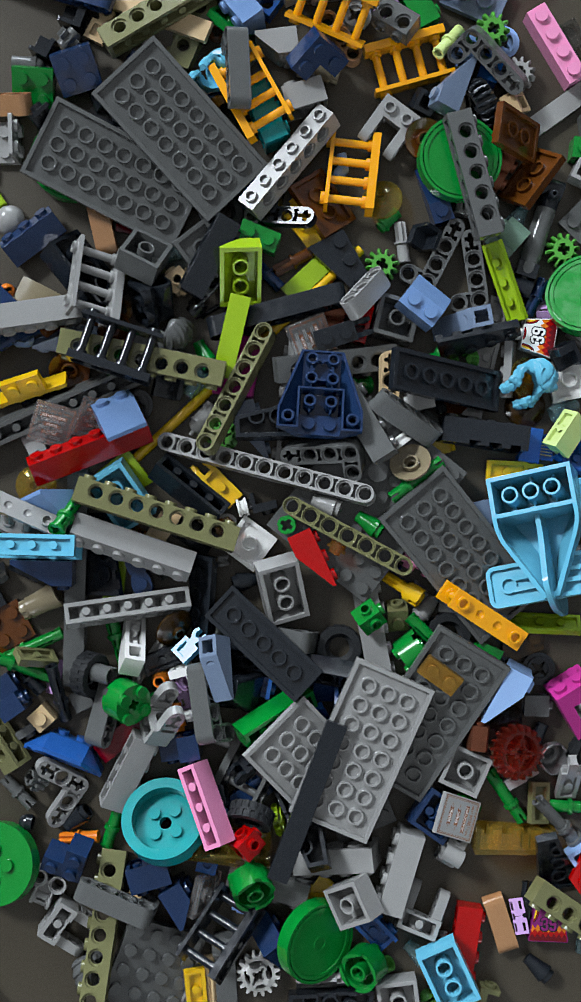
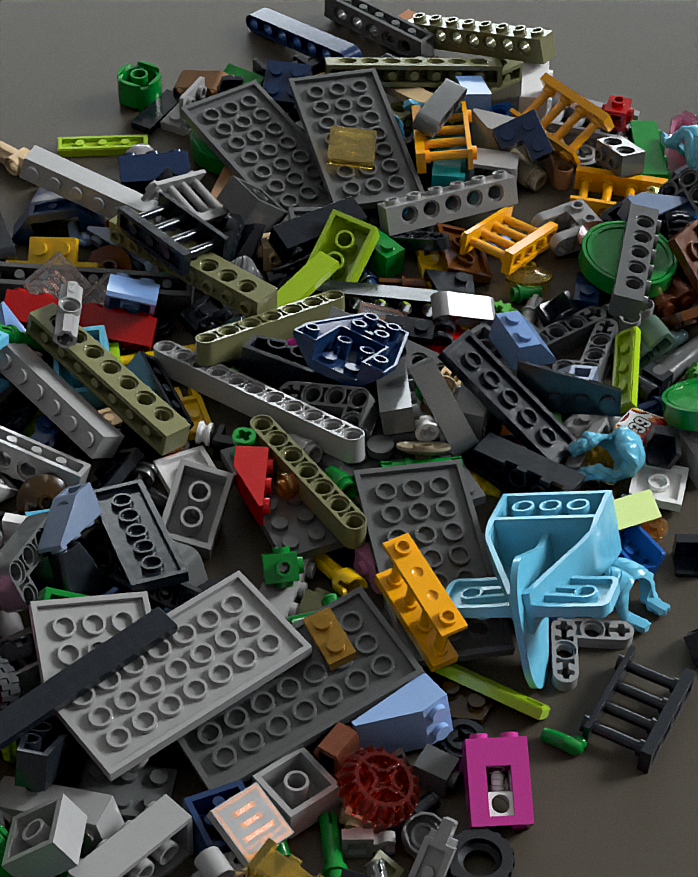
camera: 25 degrees right, 45 degrees down
(95, 477) = (68, 314): none -> light grey piece
(187, 148) = (351, 147): none -> clear yellow tile

